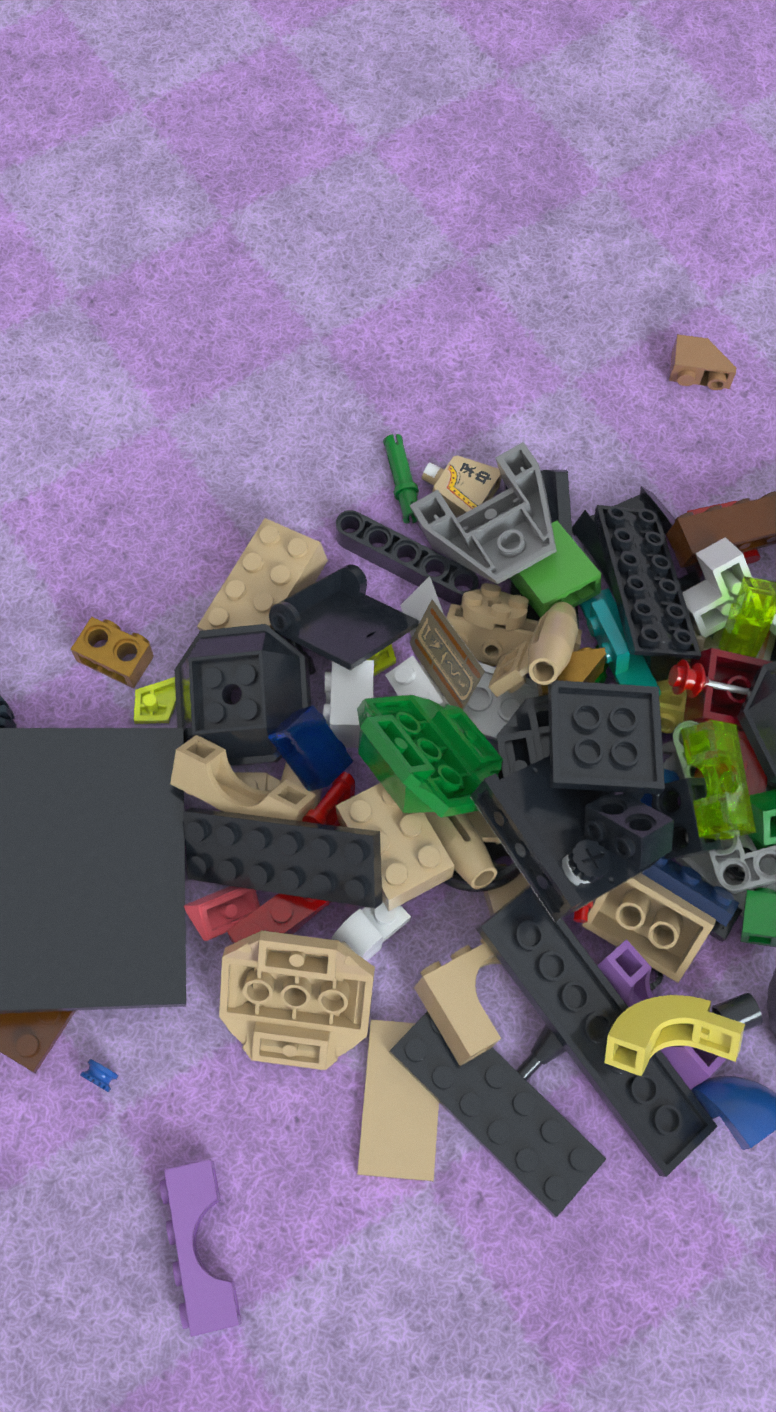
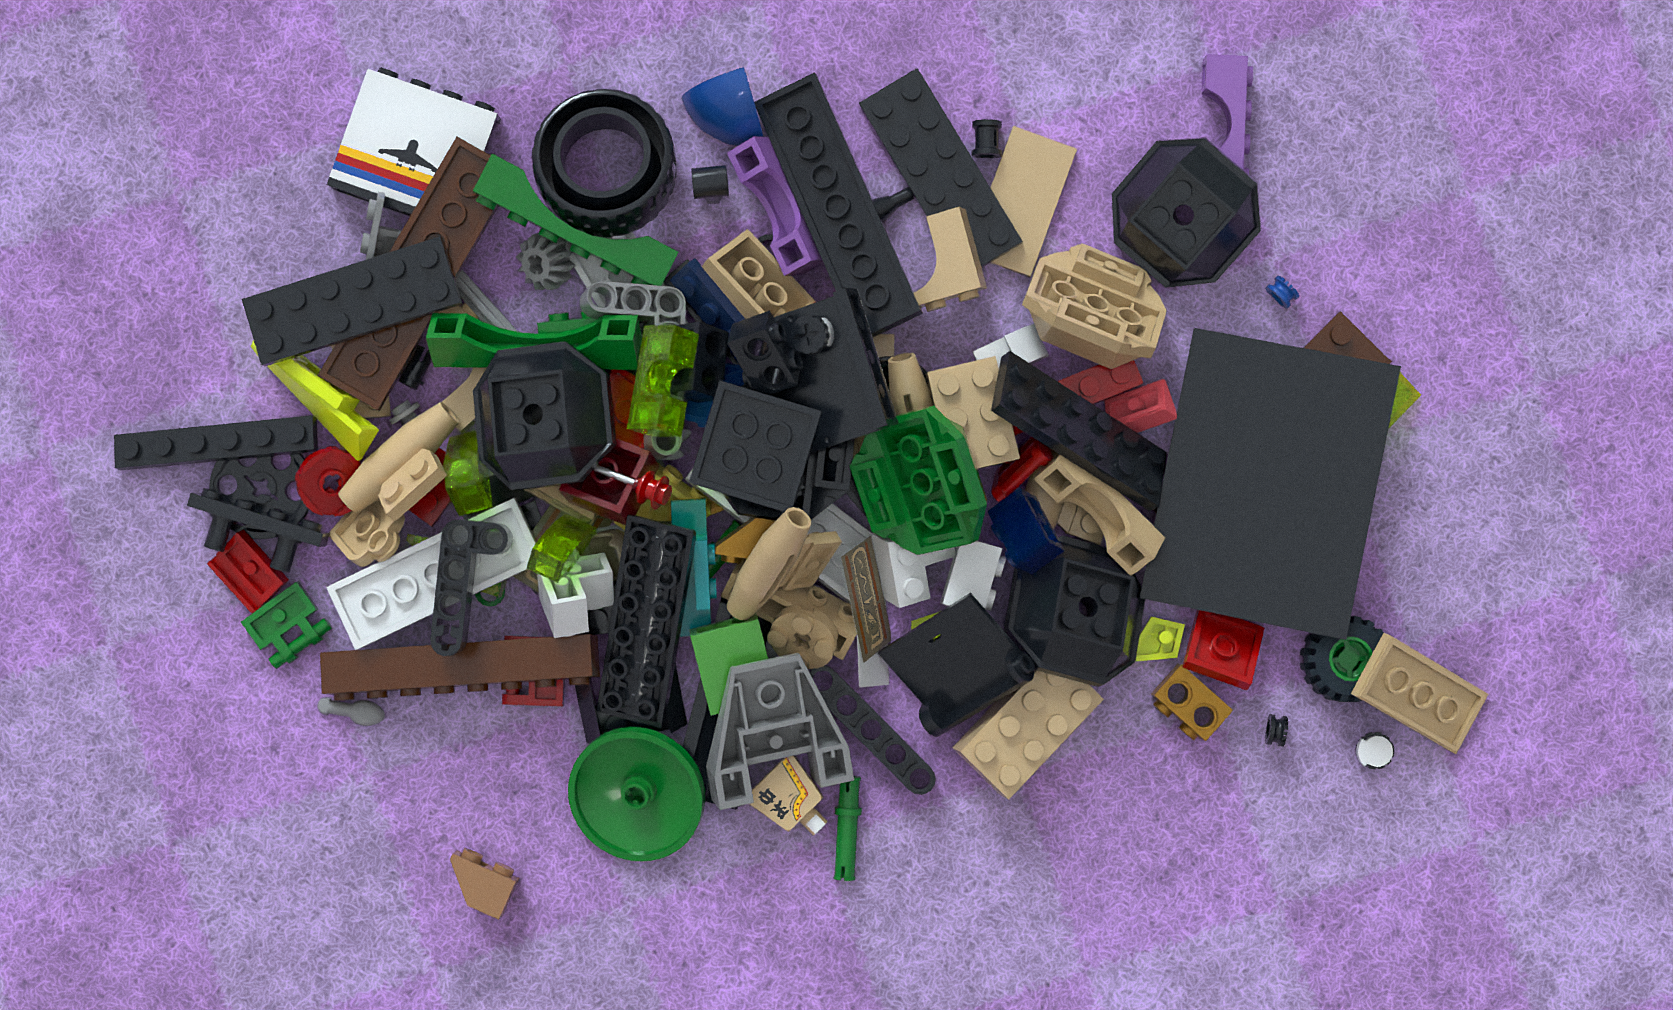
camera: 165 degrees left, 20 degrees up
(26, 649) = (1275, 730): none -> black bush
(90, 699) = (1224, 648): none -> red plate
(214, 1168) = (1191, 175): none -> black piece
(457, 1156) = (986, 138): none -> black bush
(597, 455) = (636, 794): none -> green dish
(667, 1023) = (780, 190): light yellow arch -> none

